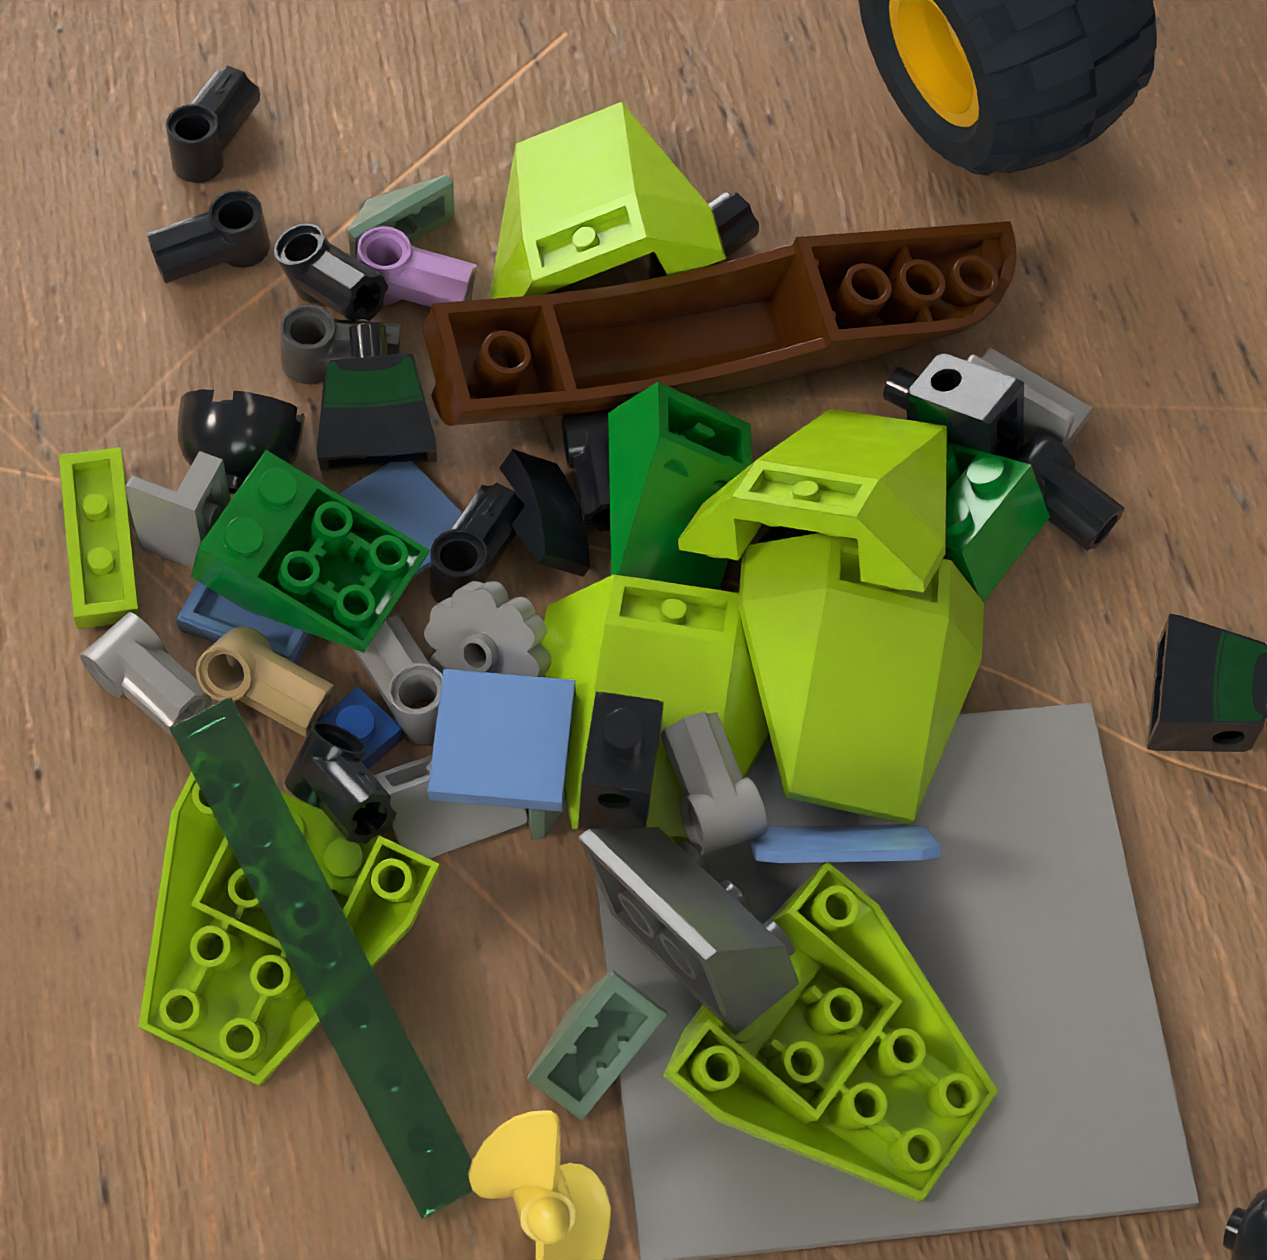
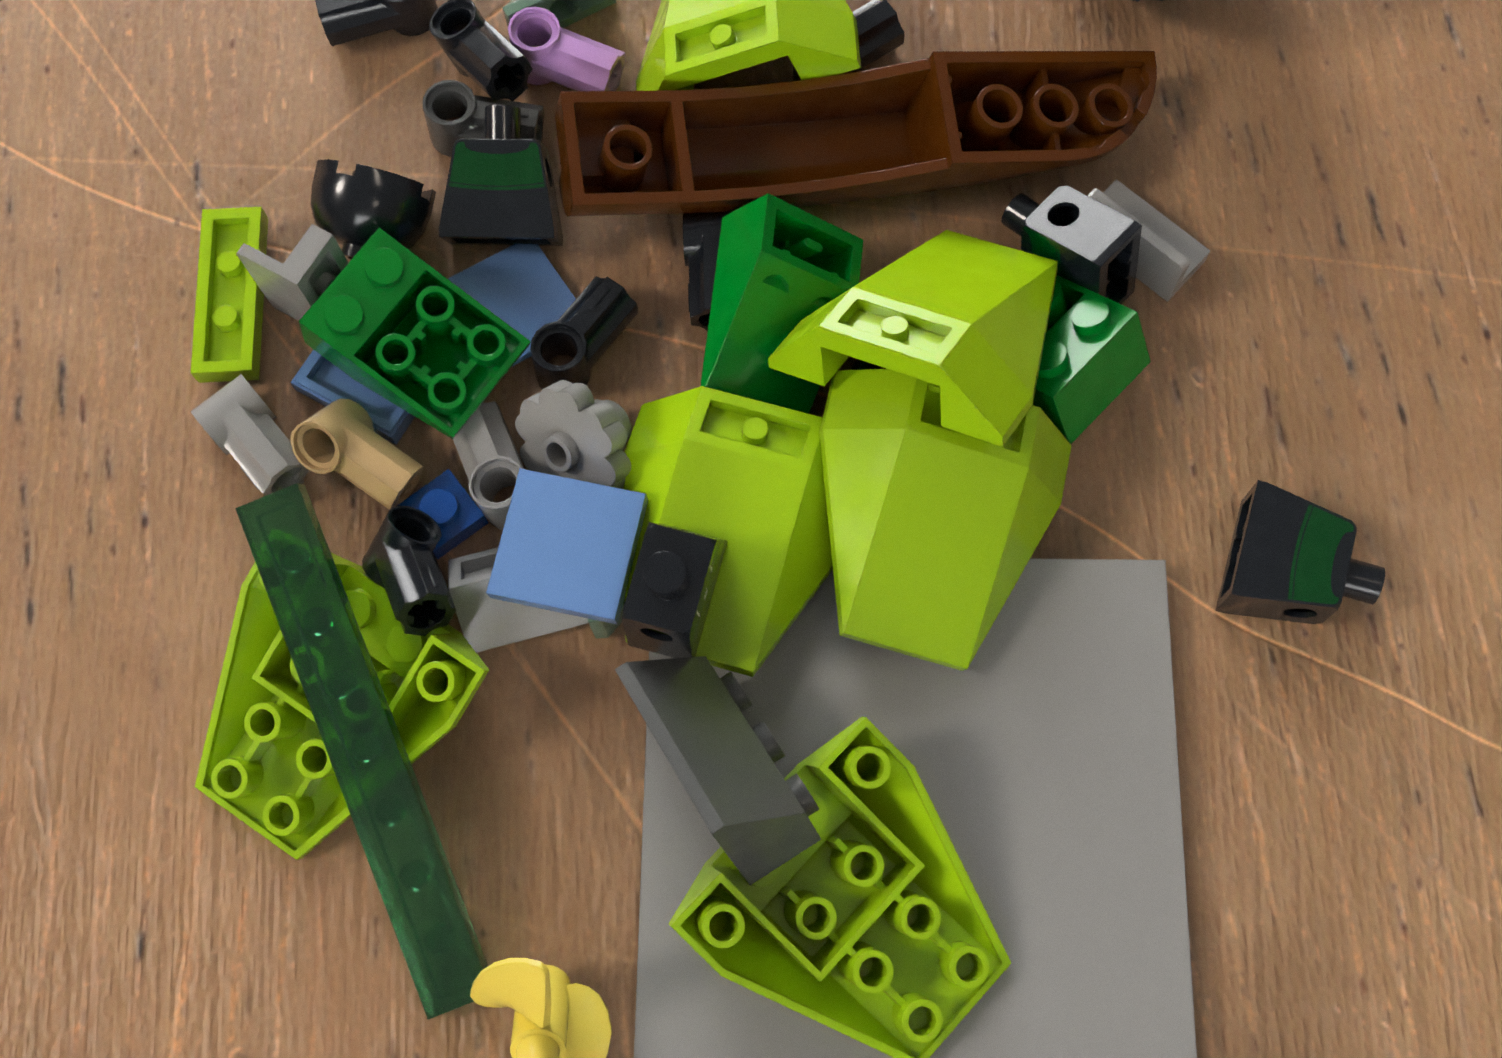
camera: 15 degrees right, 10 degrees up
(551, 516) = (658, 316): black slope -> none
(595, 1043) = (618, 864): sand green slope -> none
(716, 800) = (767, 637): light grey piece -> none
(845, 844) = (889, 692): medium blue piece -> none
(1070, 498) = (1172, 341): black piece -> none

